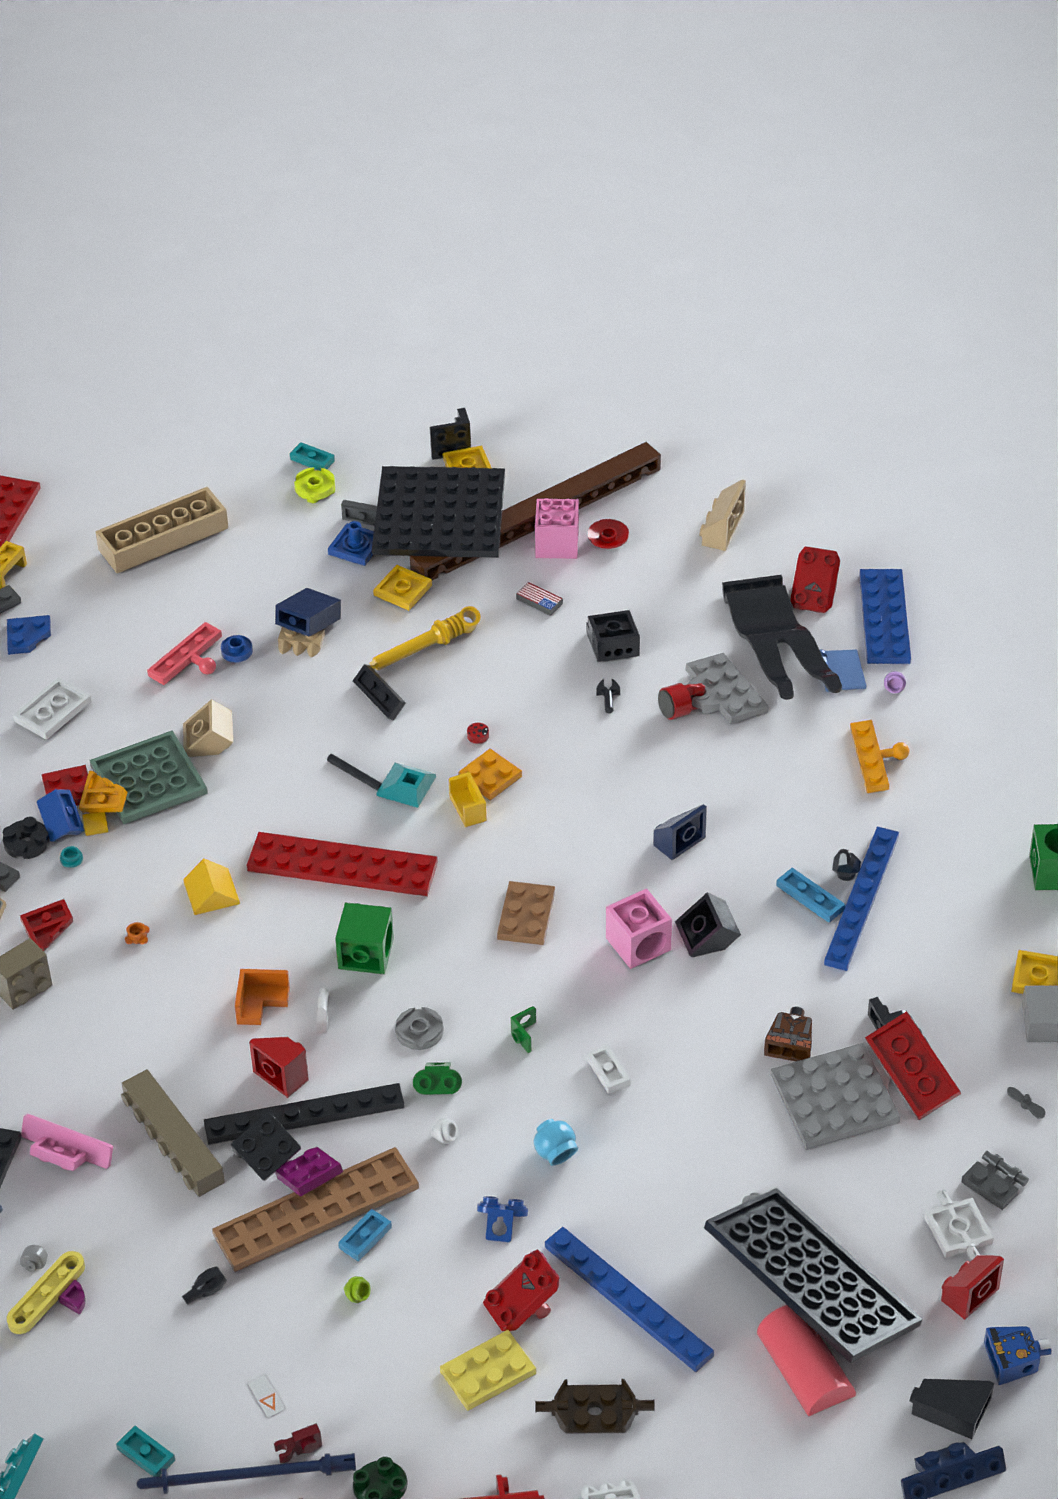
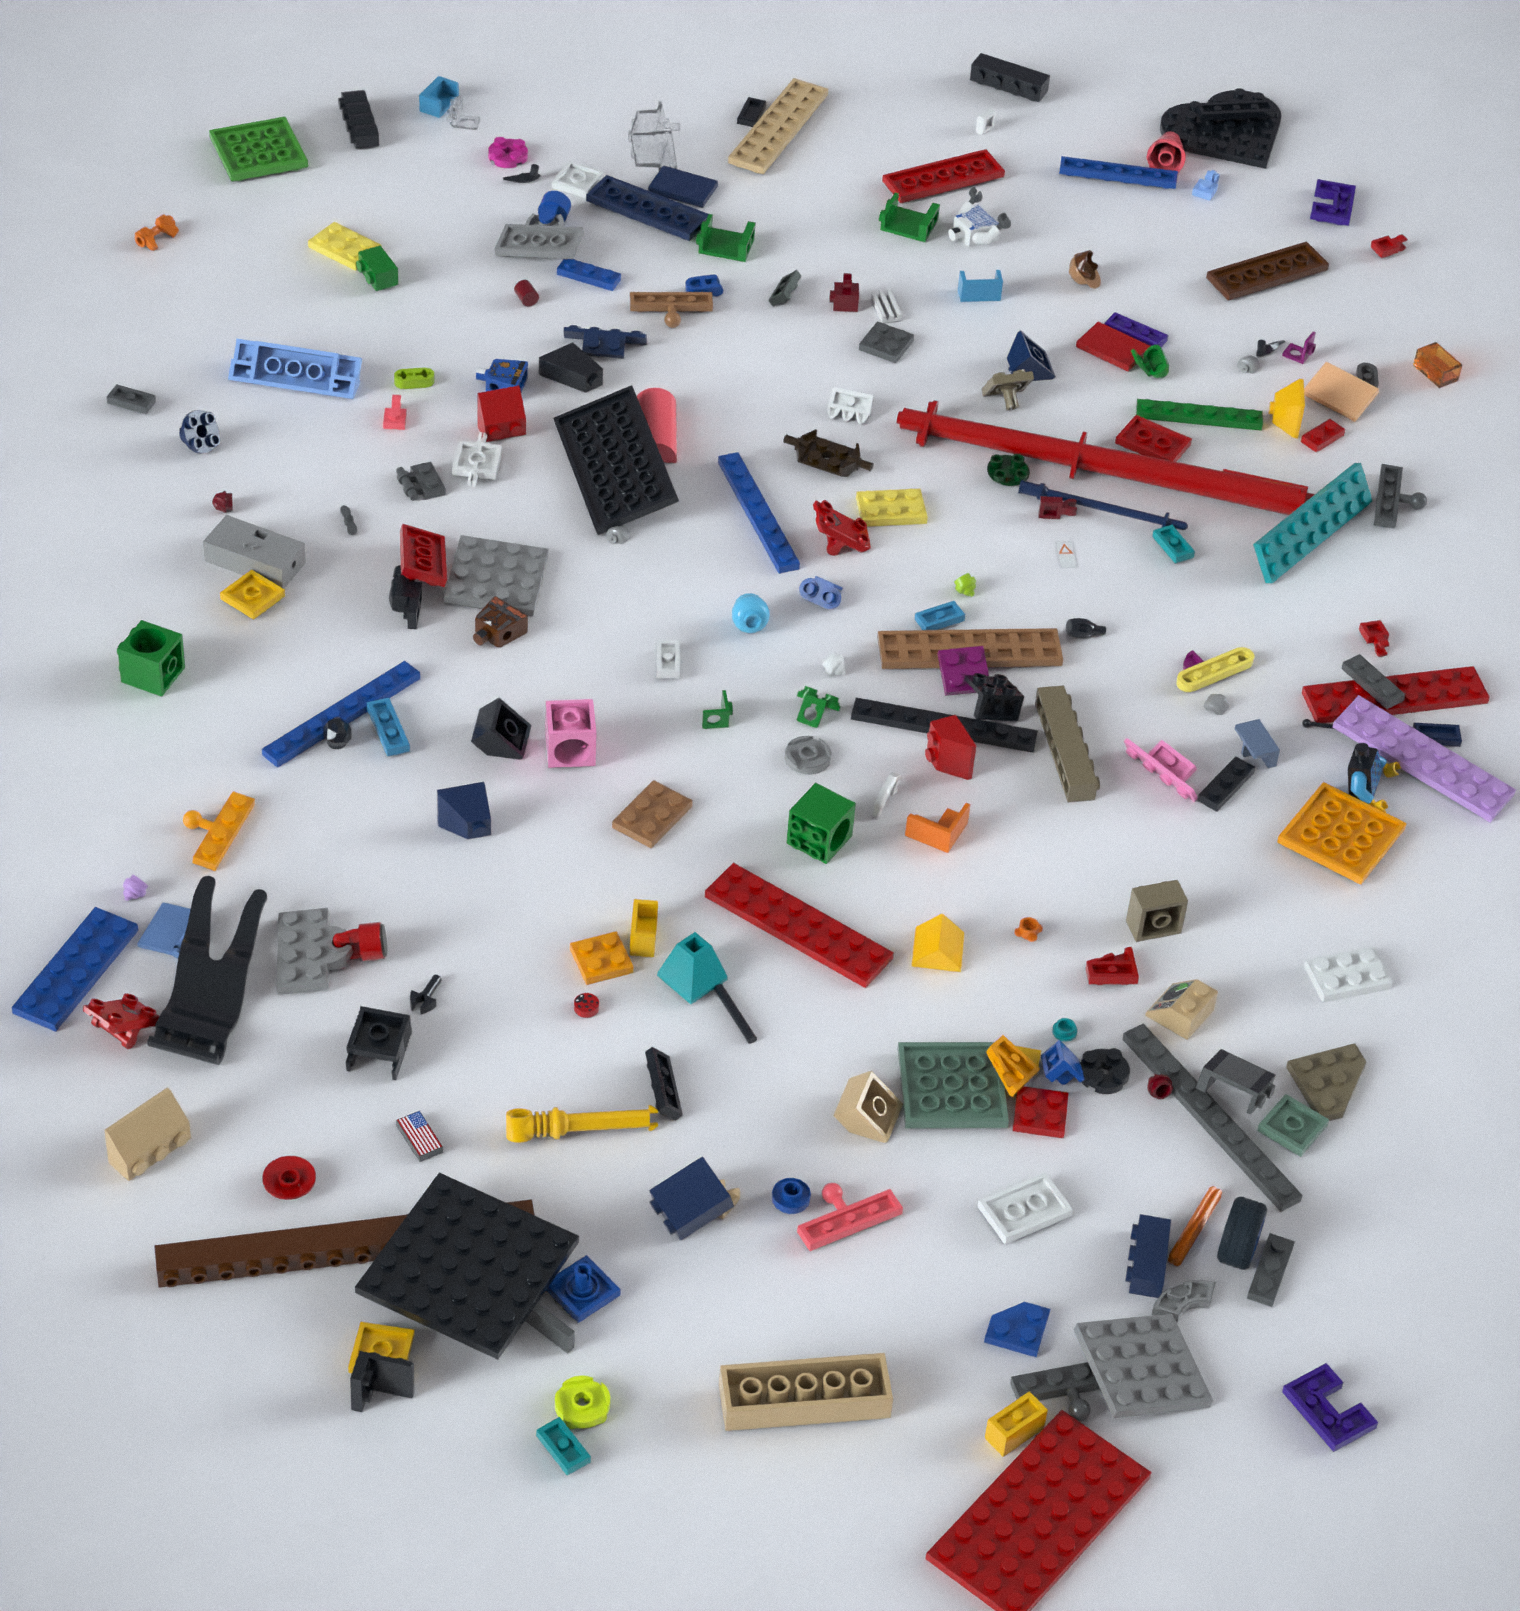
camera: 160 degrees left, 0 degrees up
(402, 587) = (564, 1204): yellow plate -> none
(557, 528) = (347, 1188): bright pink brick -> none

